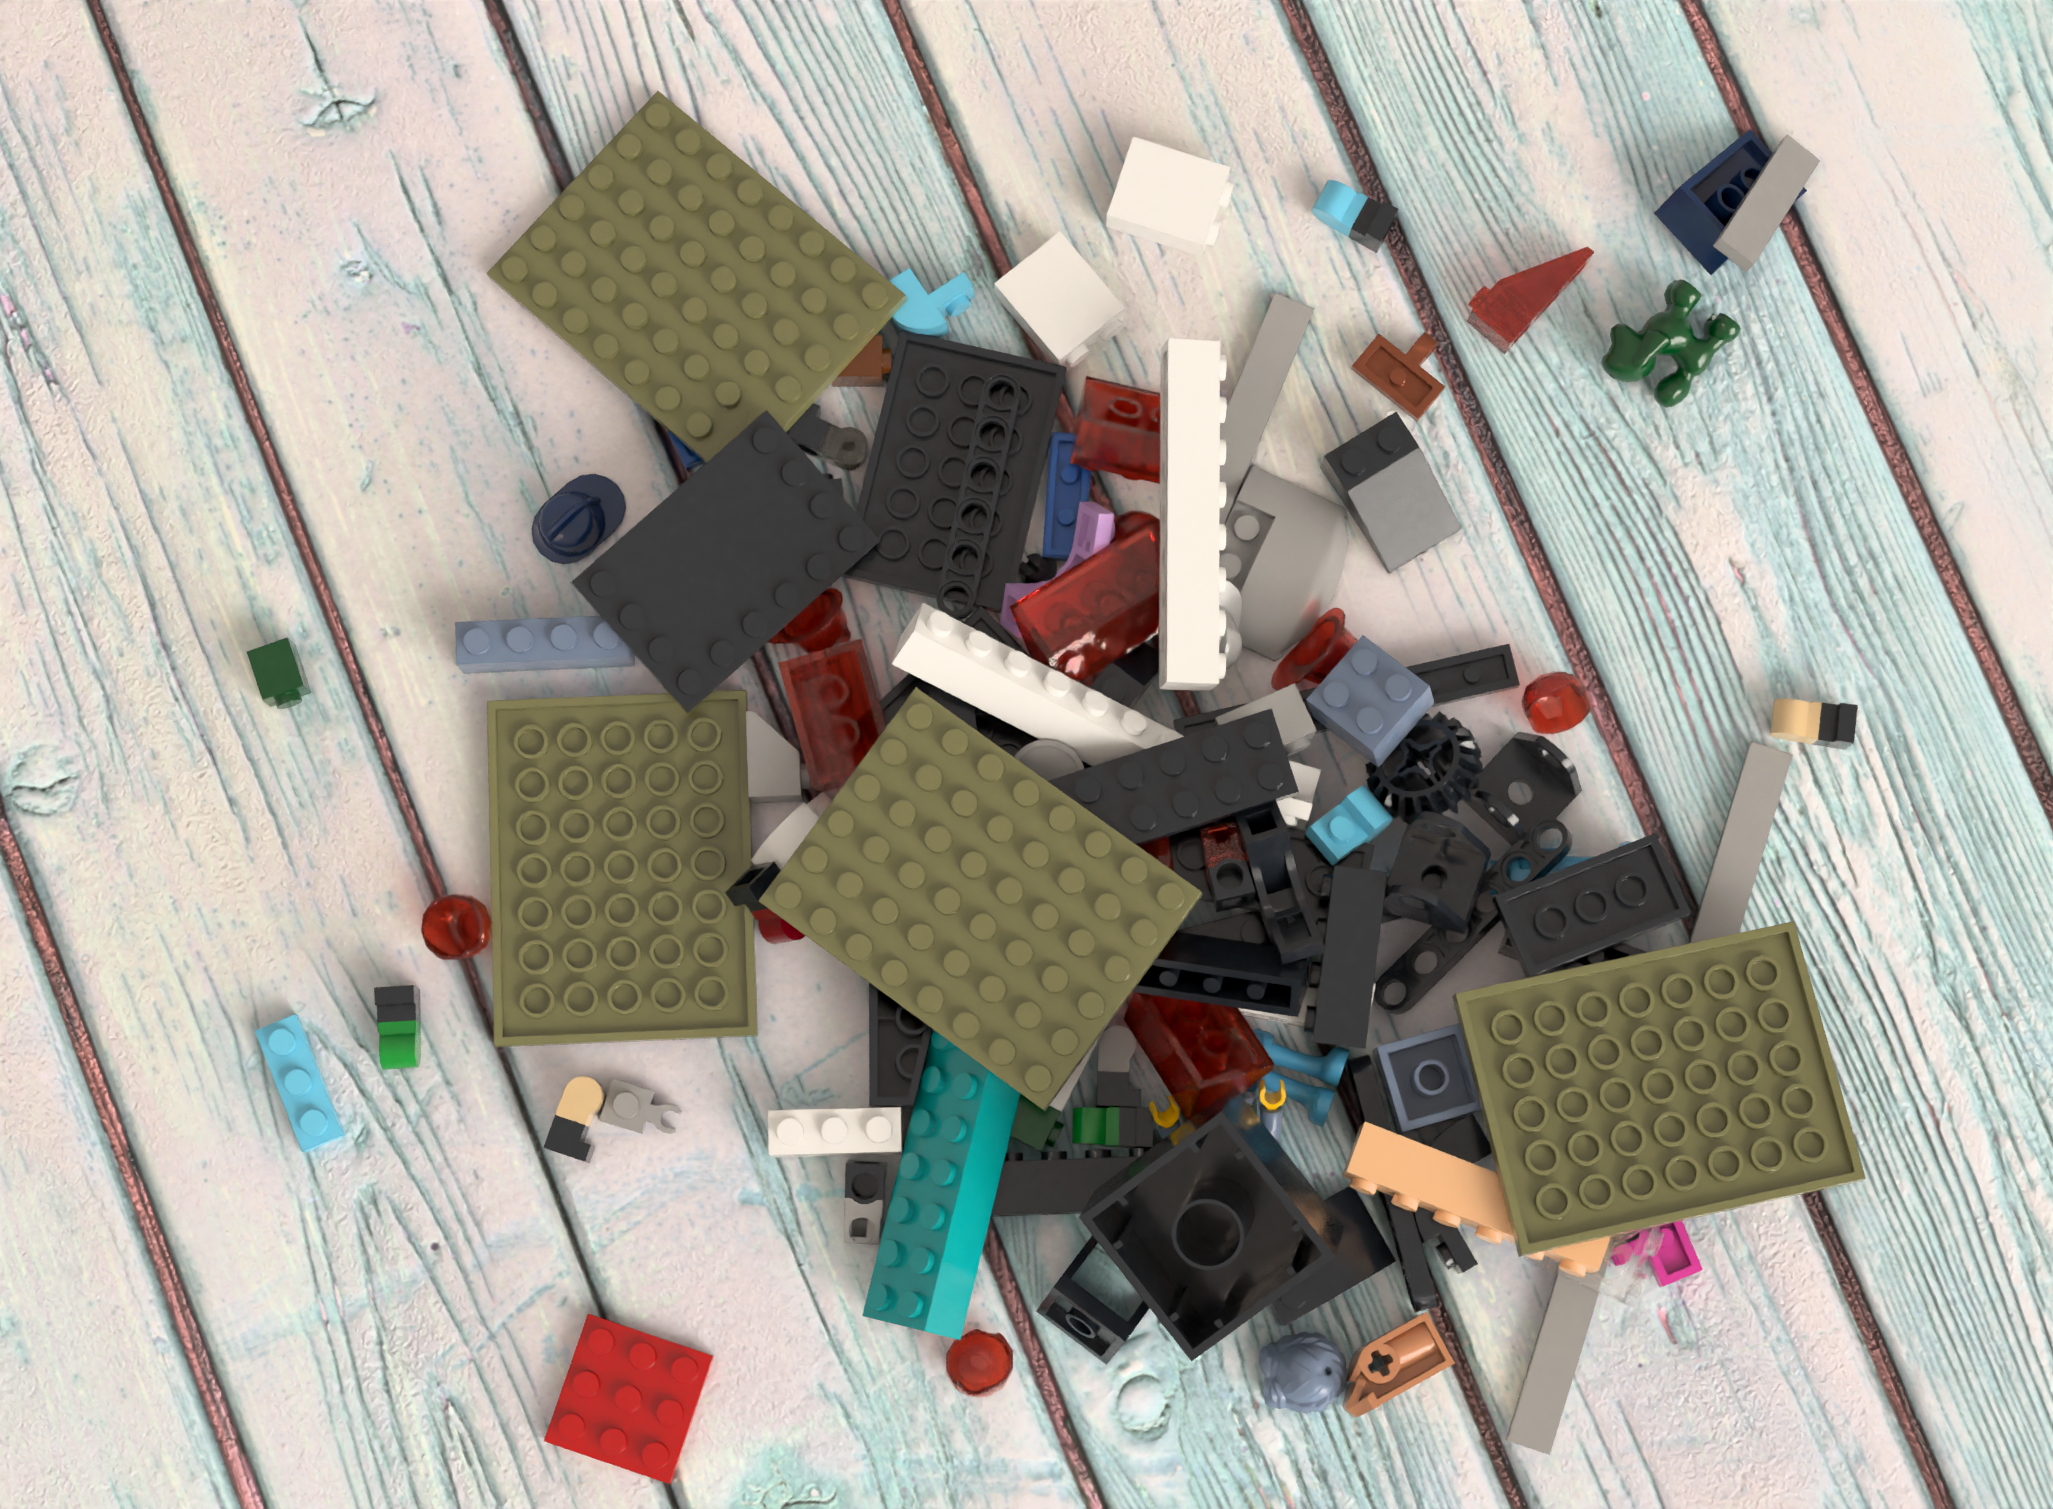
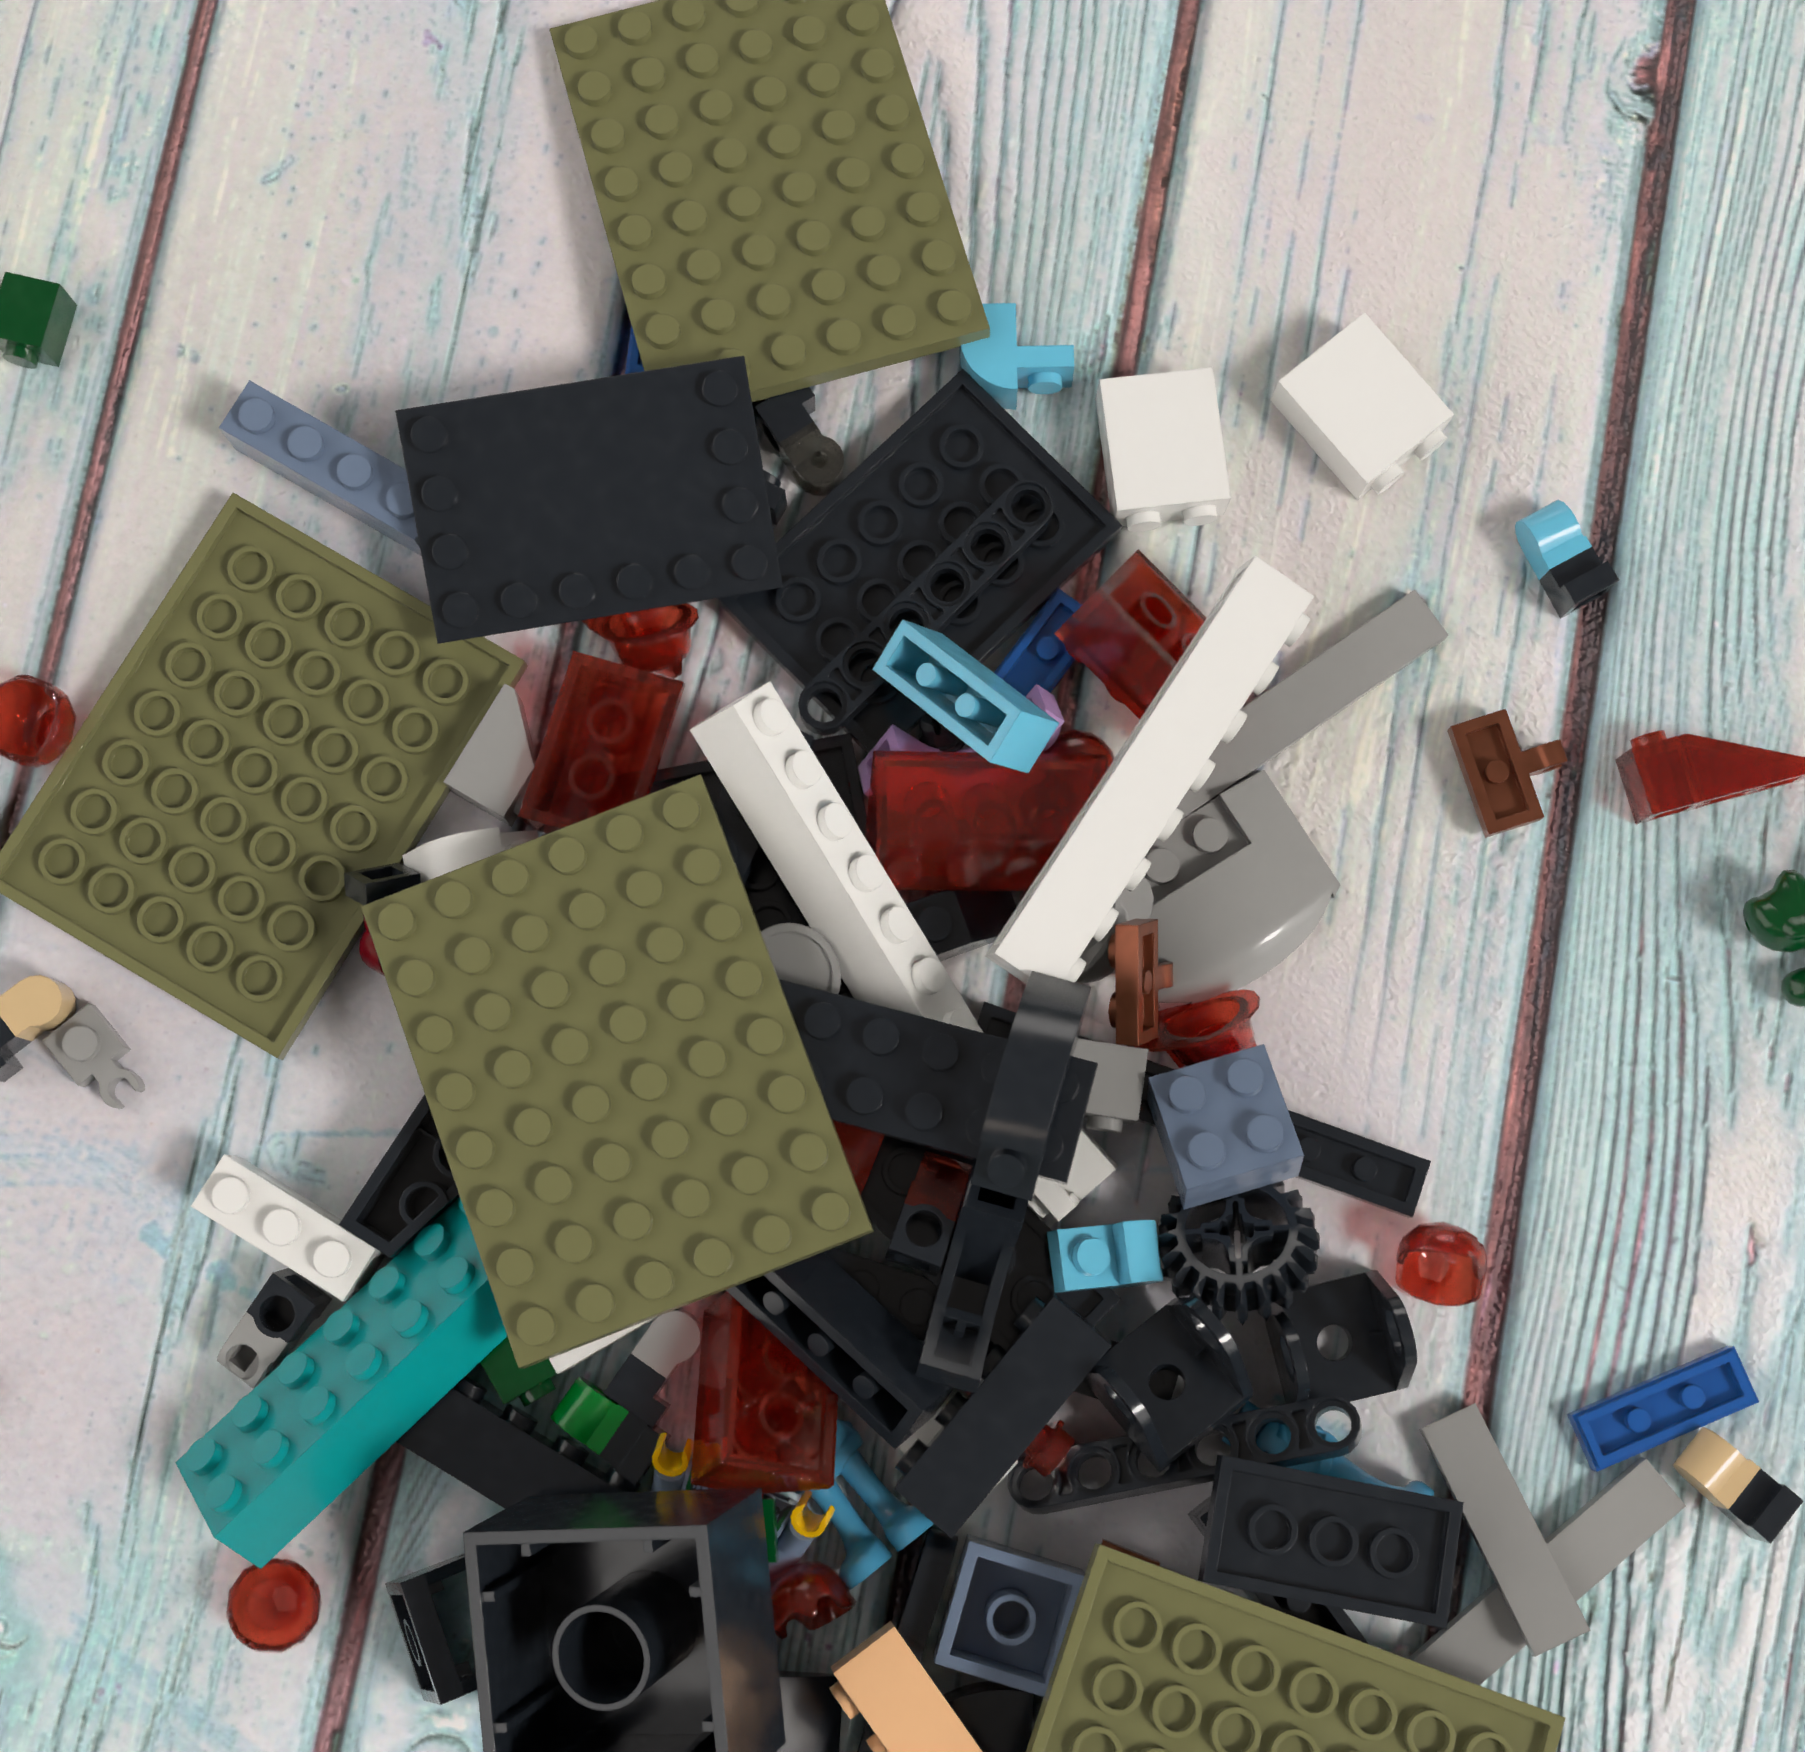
camera: 30 degrees right, 0 degrees up
(578, 518) = (472, 356): dark blue piece -> none
(867, 366) = (898, 386): reddish brown brick -> none
(1044, 537) = (965, 697): none -> medium azure brick
(1241, 746) = (1029, 1085): none -> black arch
(1261, 644) = (1137, 981): none -> copper plate
(1305, 1144) = (810, 1595): none -> clear red hair
(1388, 964) = (1048, 1448): none -> clear red plate
(1391, 492) = (1404, 898): slope -> none
(1692, 837) = (1505, 1530): none -> light grey tile
(1743, 705) = (1662, 1408): none -> blue tile

